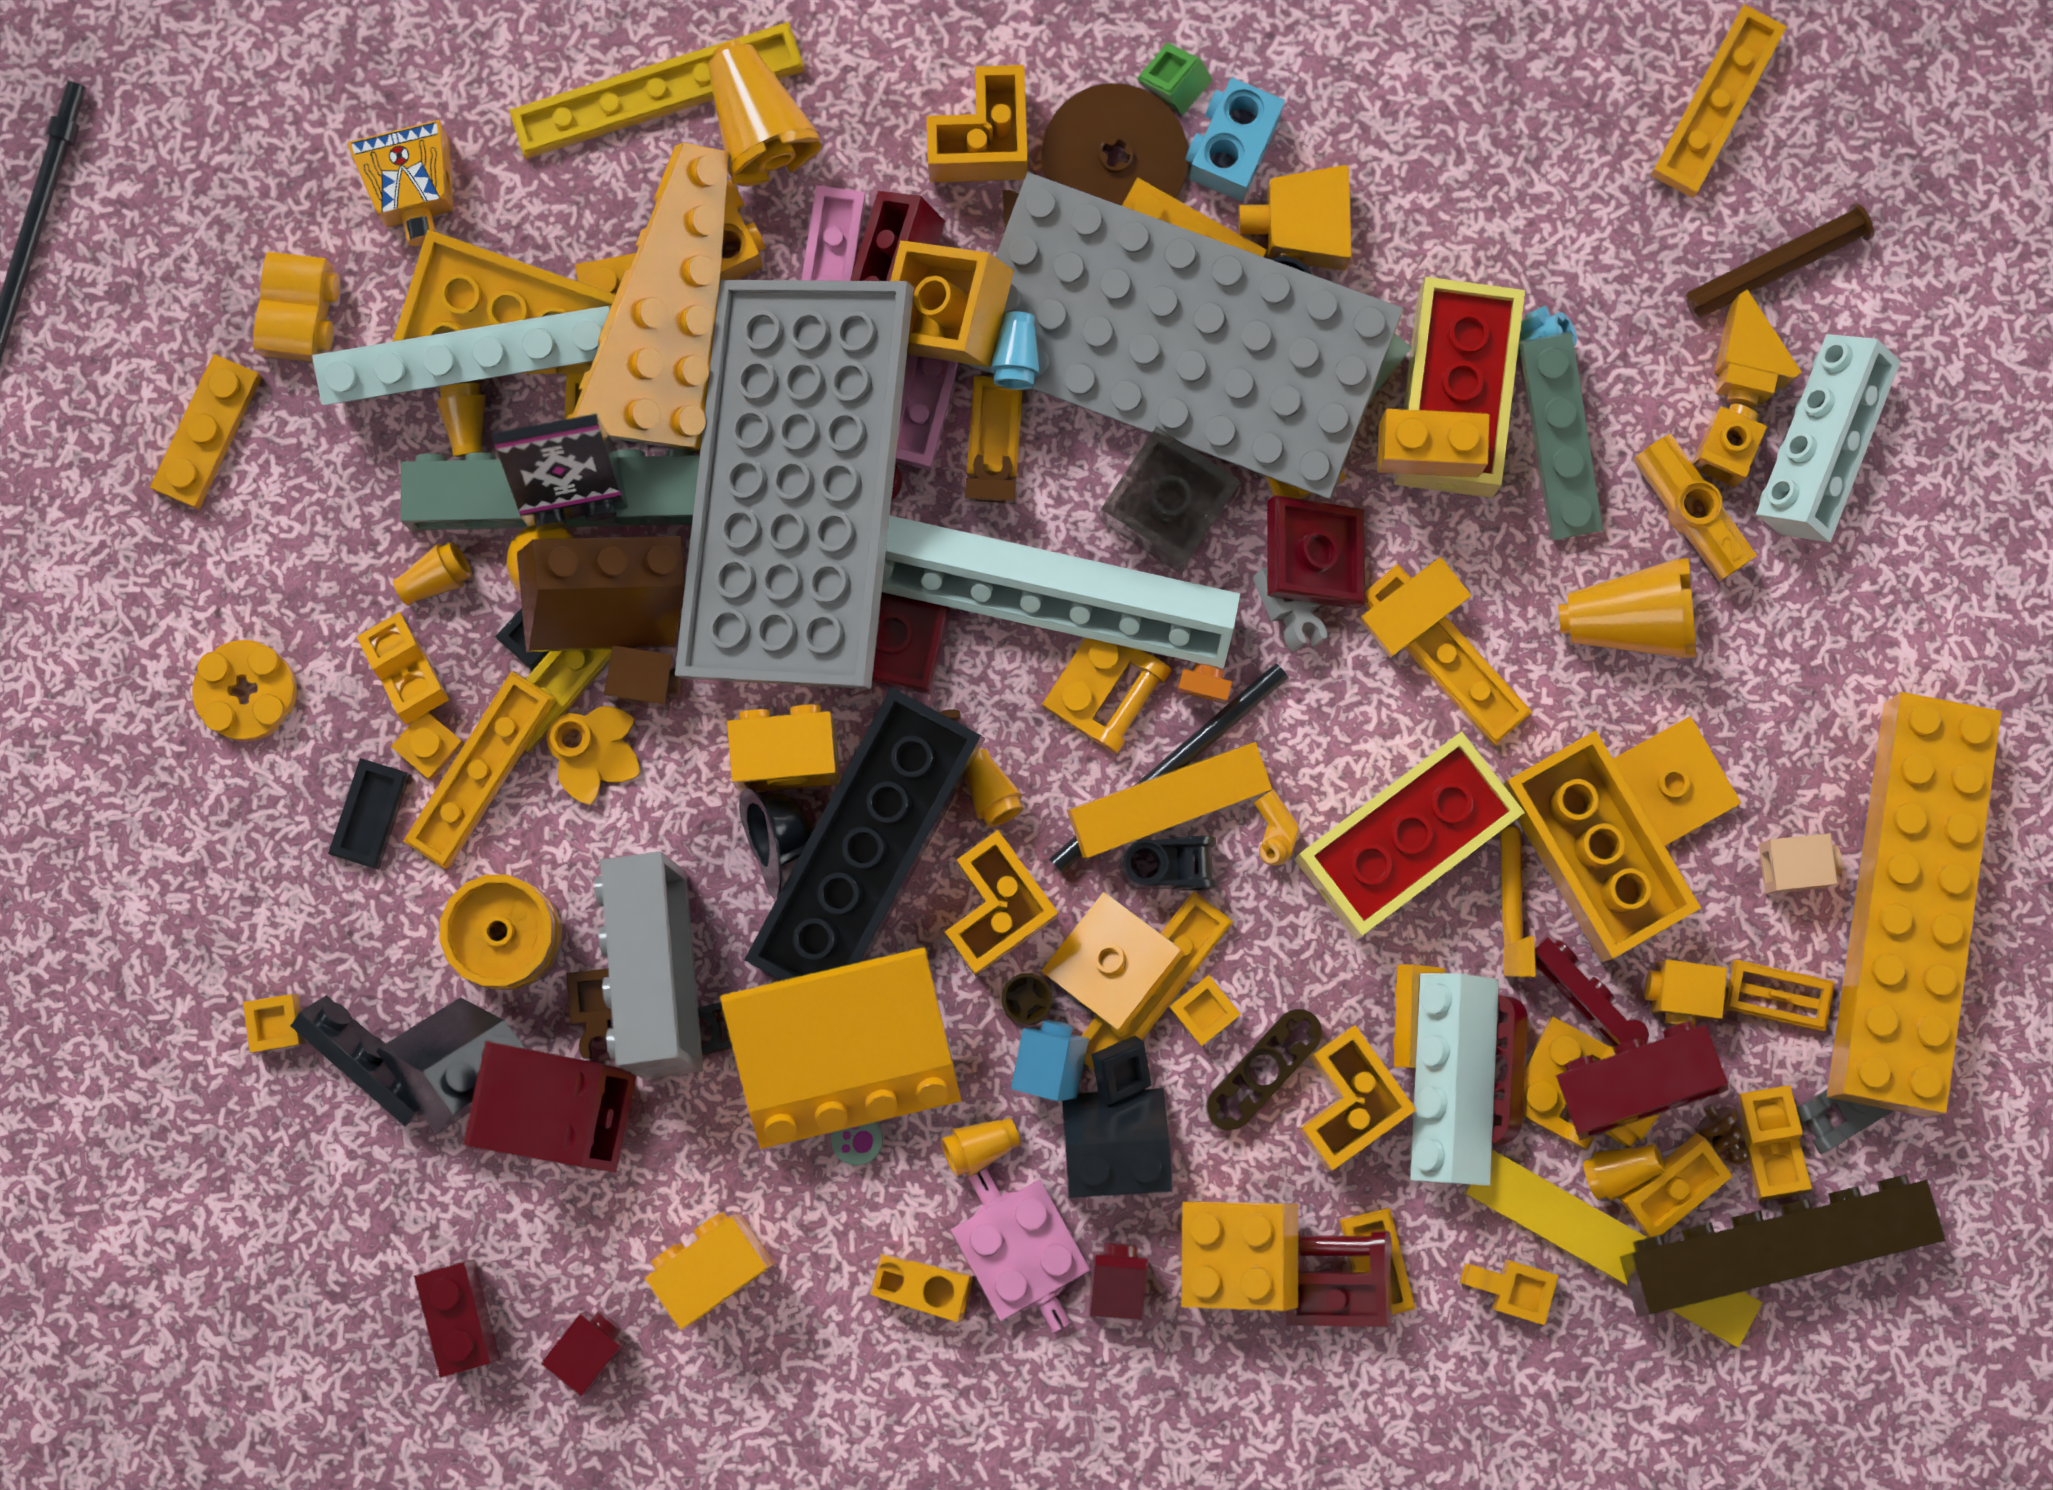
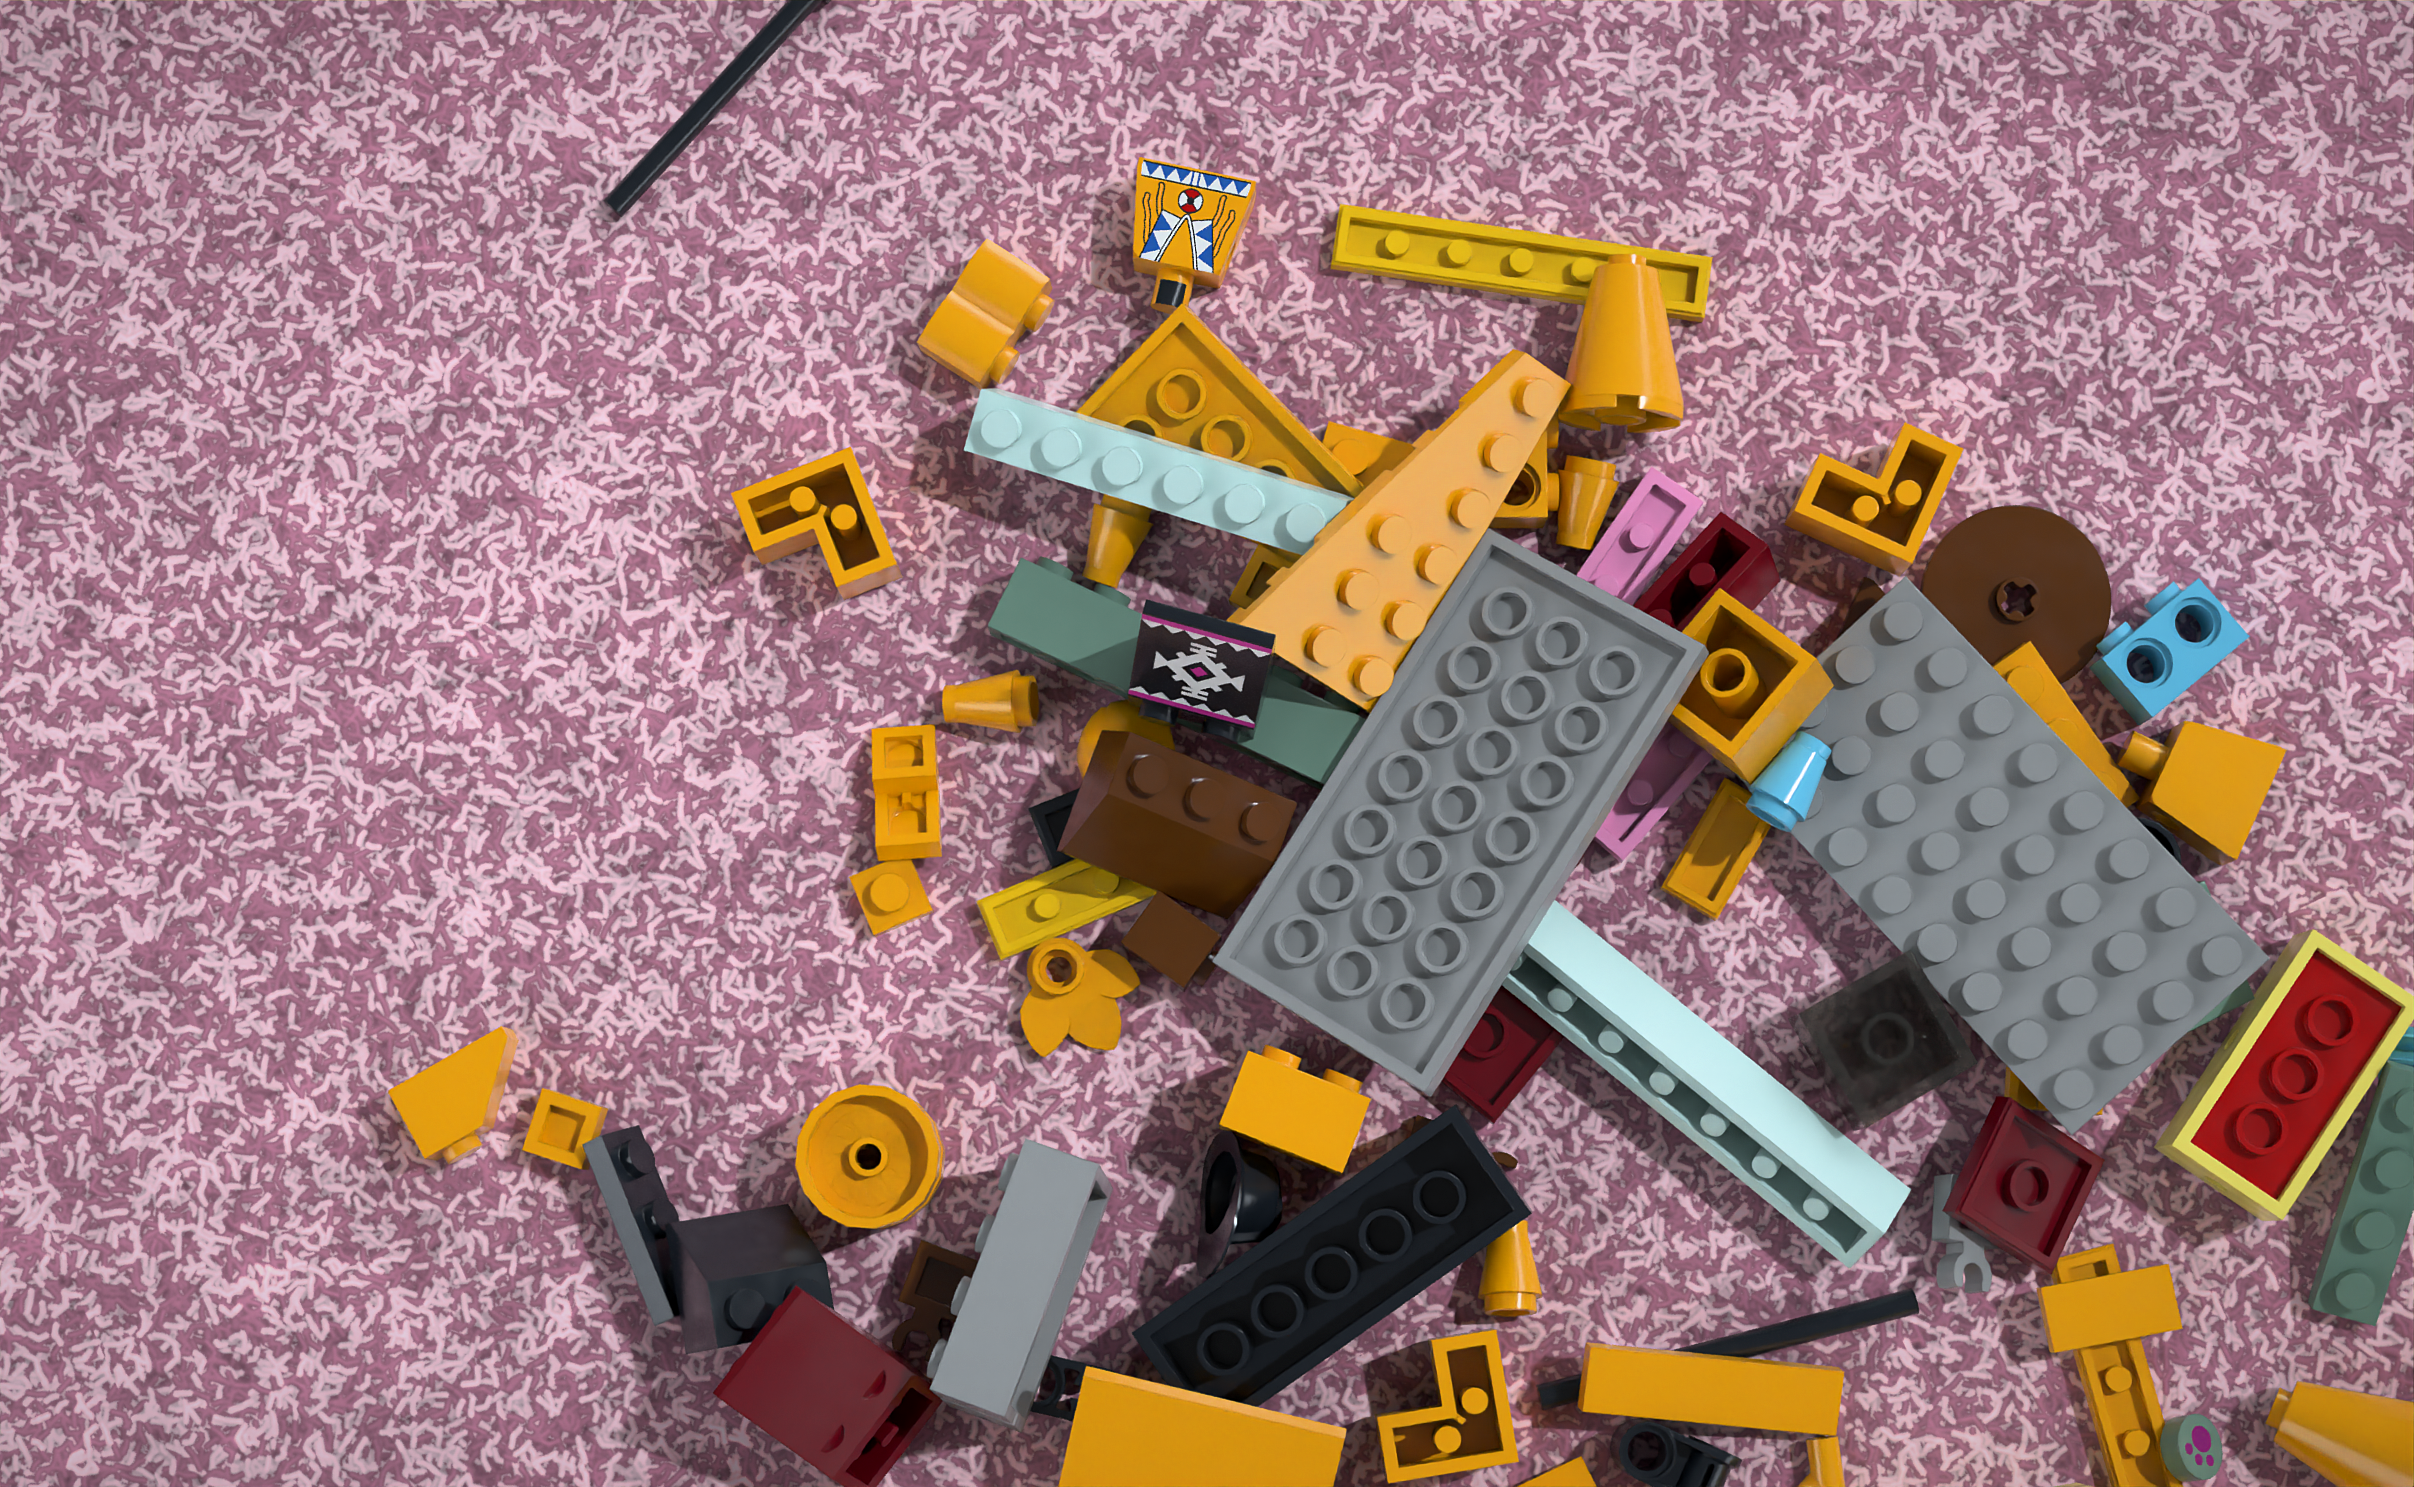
camera: 30 degrees right, 0 degrees up
(185, 1037) = (457, 1097): none -> light orange slope
(206, 431) = (817, 406): light orange plate -> none
(243, 495) = (824, 506): none -> light orange brick
(266, 708) = (732, 760): light orange plate -> none
(369, 813) = (787, 941): black tile -> none
(479, 769) = (937, 954): light orange tile -> none
(781, 232) = (1584, 498): none -> light orange cone
(991, 487) = (1683, 920): reddish brown tile -> none
(1091, 679) = (1686, 1201): light orange plate -> none
(1176, 77) = (2132, 540): bright green slope -> none
(1205, 683) = (1819, 1273): orange plate -> none
(1433, 443) = (2227, 1135): light orange brick -> none
(1518, 675) = (2191, 1448): none -> sand green tile

